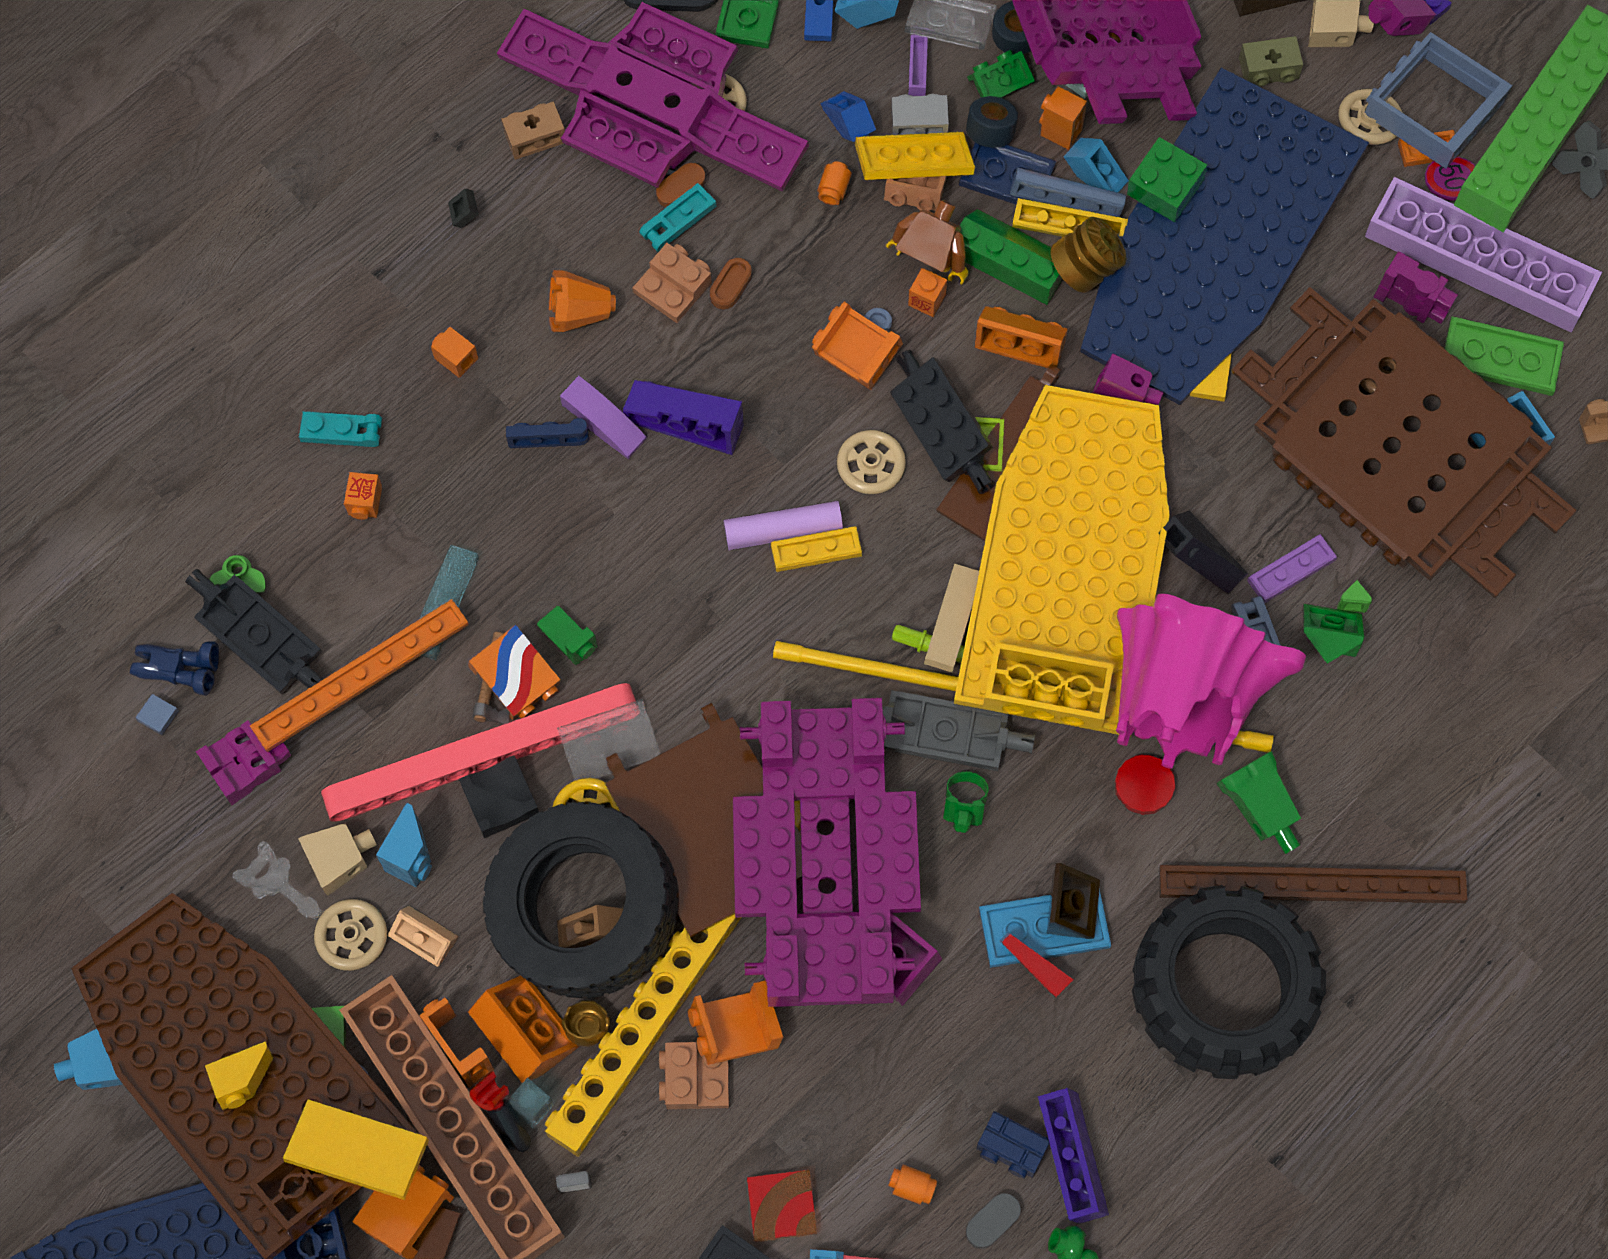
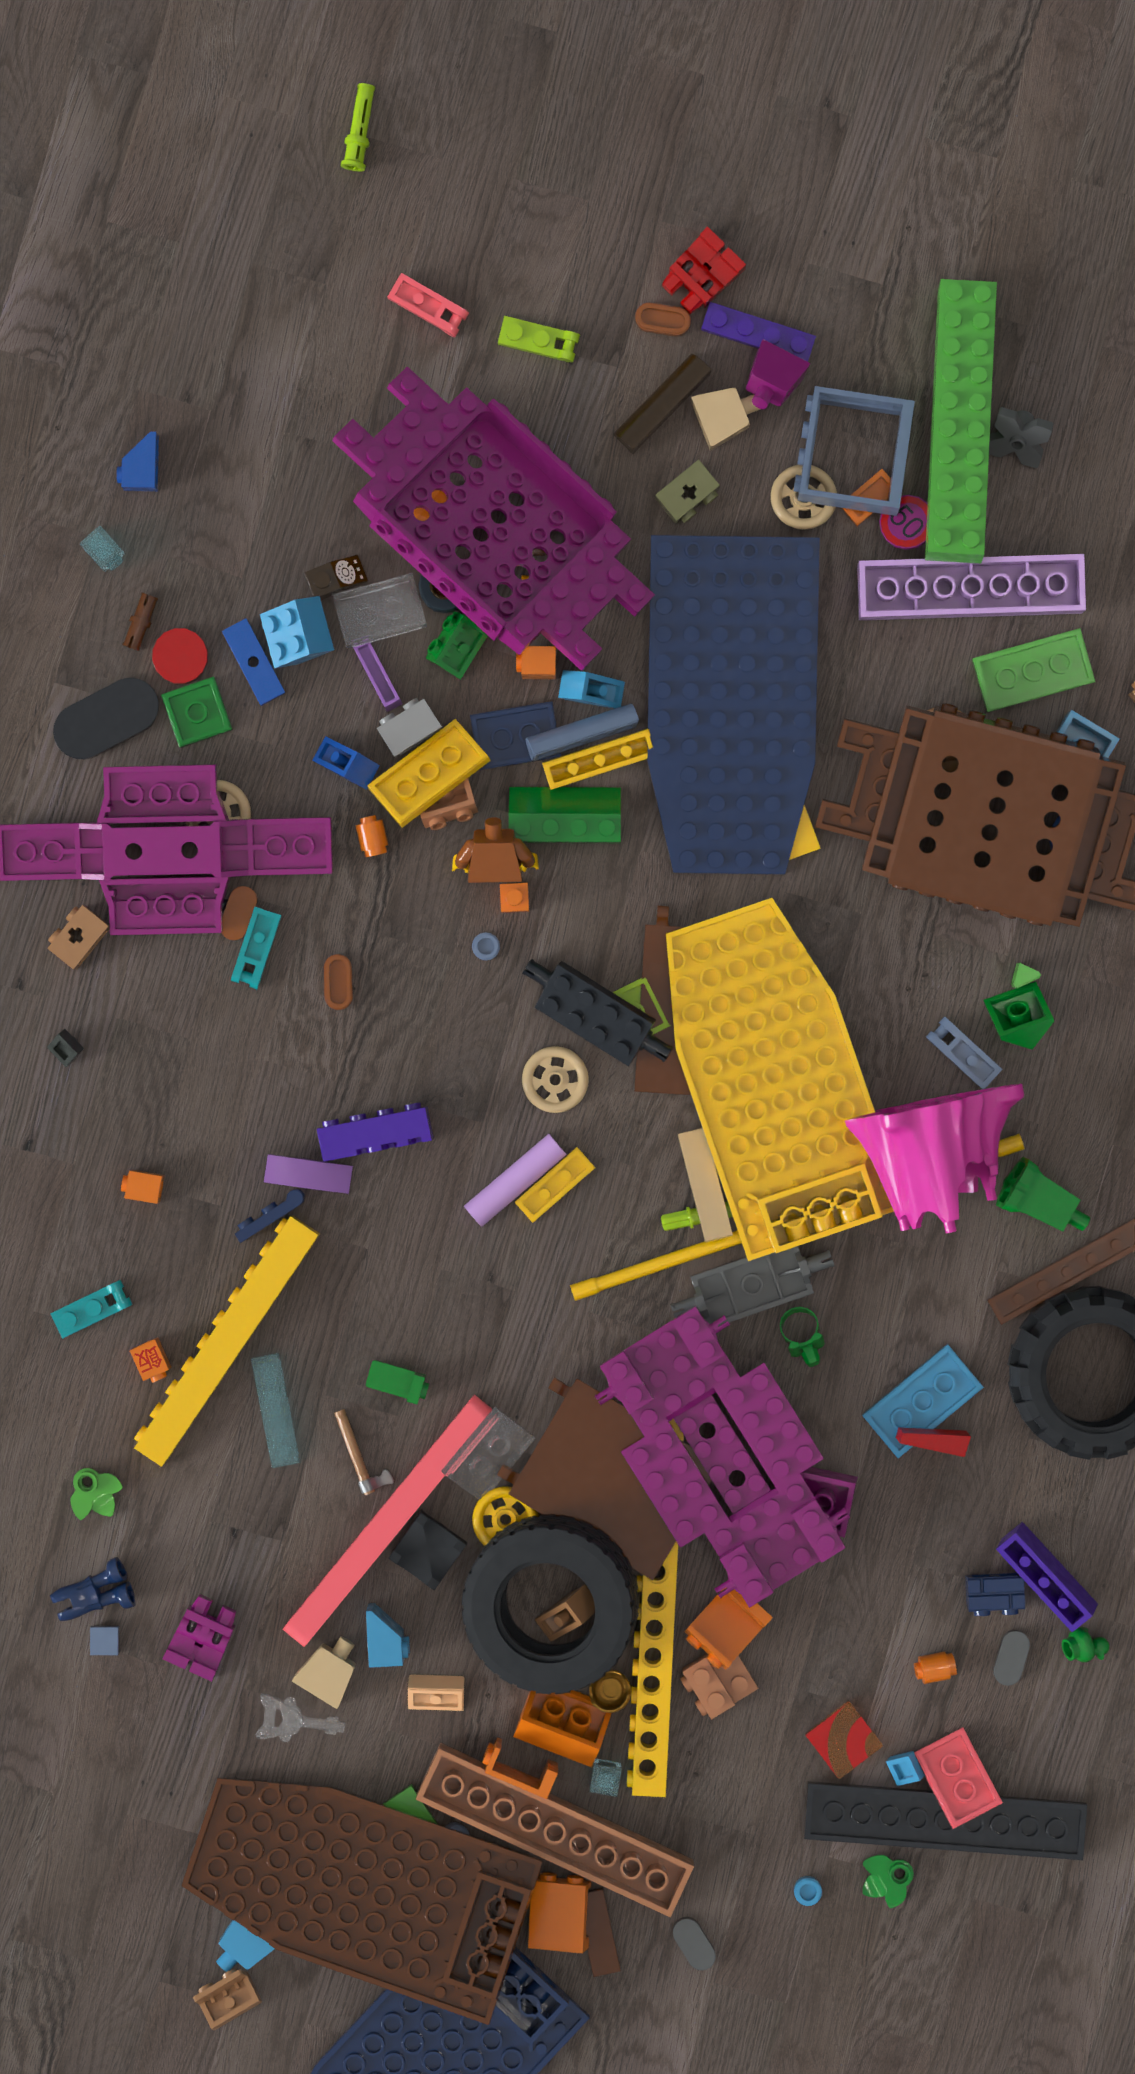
camera: 30 degrees left, 20 degrees up
(40, 1103) = (227, 1998): none -> medium nougat bracket
(239, 1075) = (376, 1902): yellow slope -> none
(256, 632) = (143, 1529): black plate -> none
(355, 1149) = (507, 1909): yellow tile -> none
(357, 958) = (396, 1741): tan plate -> none
(359, 675) = (252, 1519): orange tile -> none
(439, 516) = (226, 1341): none -> yellow brick
(492, 1098) = (581, 1799): piece -> none
(515, 673) = (376, 1443): panel -> none
(573, 1181) = (675, 1816): flat silver tile -> none
(577, 301) = (221, 1082): orange cone -> none
(673, 282) = (289, 1011): nougat plate -> none
(856, 345) = (482, 982): orange panel -> none
(991, 122) = (481, 708): black wheel -> none
(1020, 337) = (618, 892): orange slope -> none
(1073, 903) = (937, 1375): dark brown slope -> none
(1088, 254) = (636, 790): pearl gold wheel -> none
(1126, 381) = (724, 893): magenta torso -> none
(1144, 784) = (933, 1243): red tile -> none
(1166, 179) = (666, 682): green brick -> none
(1202, 552) = (875, 1007): black slope -> none
(1292, 568) = (957, 974): medium lavender tile -> none
(1416, 290) = (934, 659): magenta hips -> none

